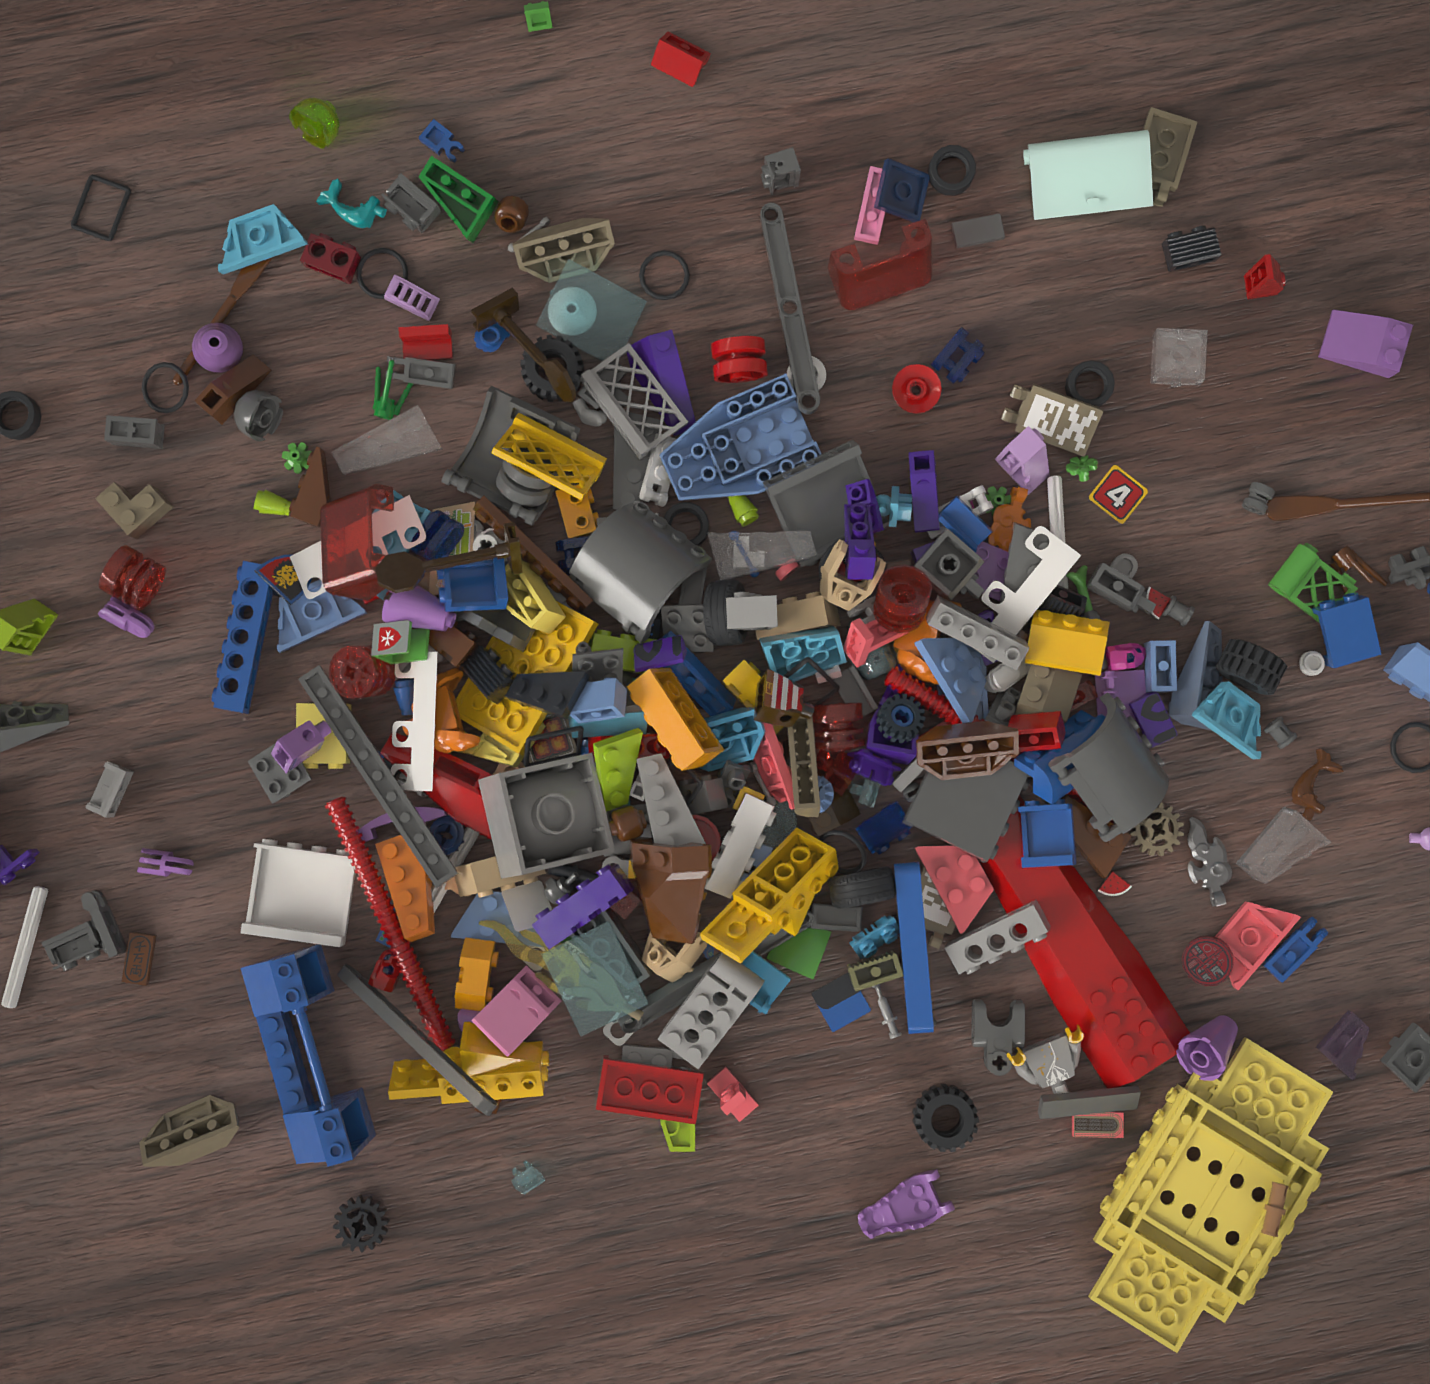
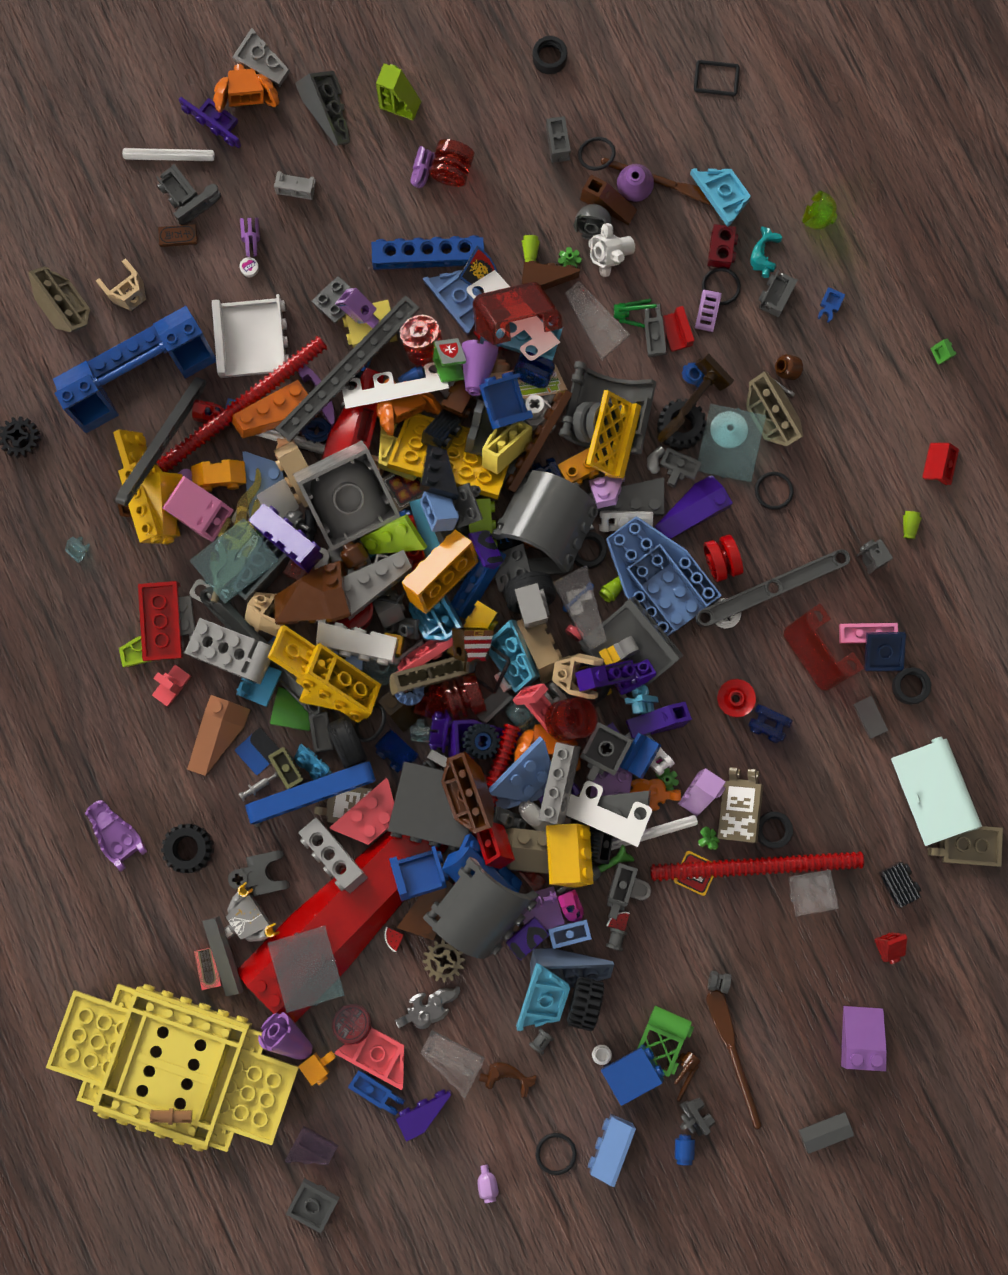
camera: 75 degrees right, 5 degrees down
(136, 513) = (499, 153): dark tan brick -> none
(192, 1031) = (119, 295): none -> tan piece
(205, 874) = (249, 267): none -> white tile
(300, 402) = (609, 249): none -> white piece
(404, 571) = (501, 347): dark brown piece -> none
(459, 197) = (790, 328): green wedge -> none
(580, 729) = (407, 485): black piece -> none
(614, 409) = (660, 476): light grey fence -> none
(616, 486) = (605, 490): none -> lavender wing
(749, 116) = (911, 523): none -> lime cone
(802, 1045) = (218, 729): none -> nougat wedge
(827, 518) = (620, 651): none -> leg
(1129, 416) = (758, 866): none -> red piece
(1132, 1002) = (306, 969): none -> clear light blue piece
(1250, 1017) = (315, 1068): none -> light orange brick
(1339, 904) = (417, 1120): none -> dark purple slope

